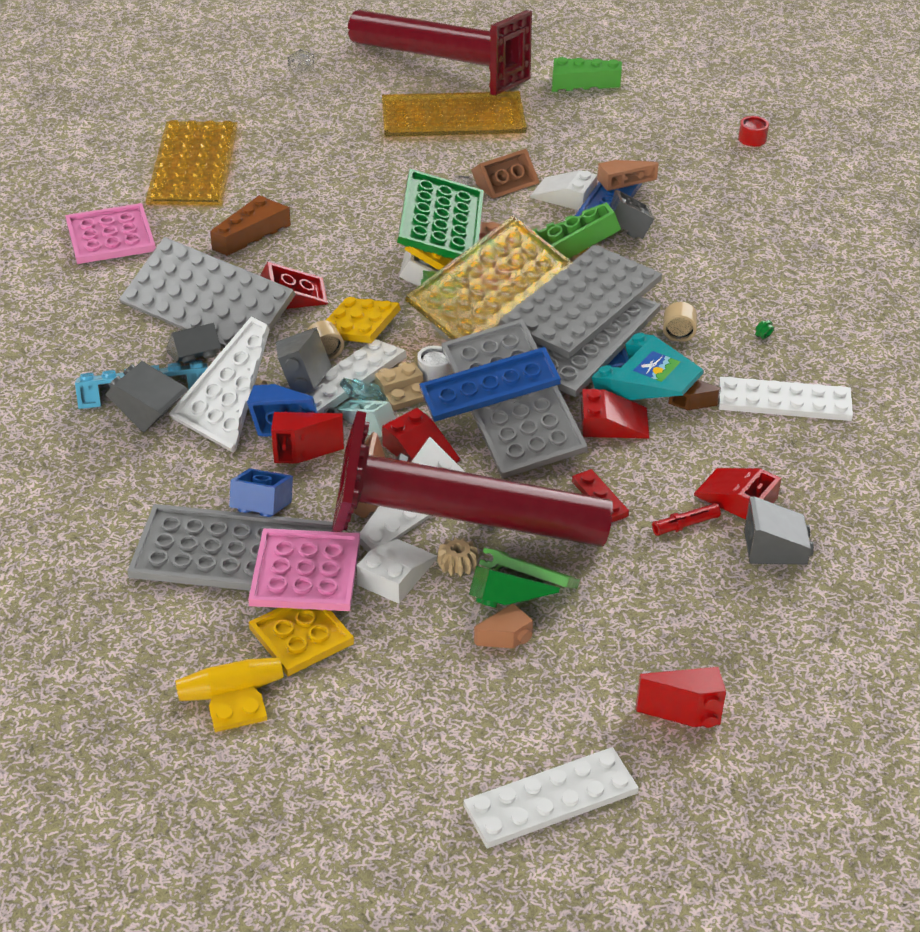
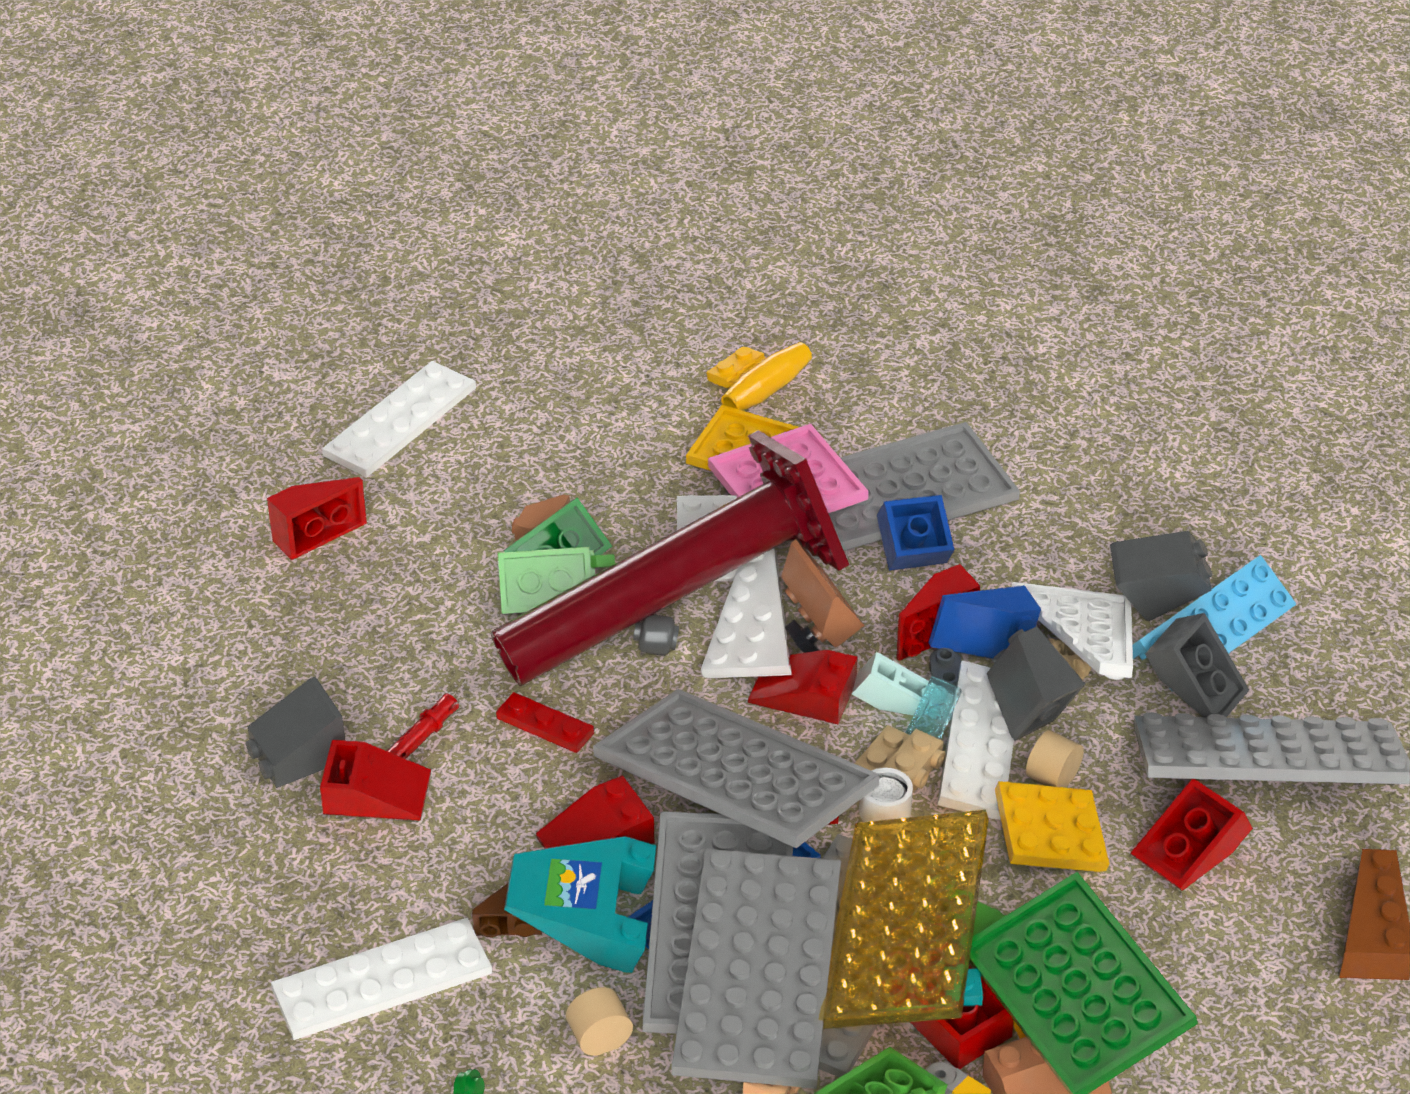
camera: 150 degrees right, 0 degrees up
(489, 384) = (764, 743): blue plate -> none

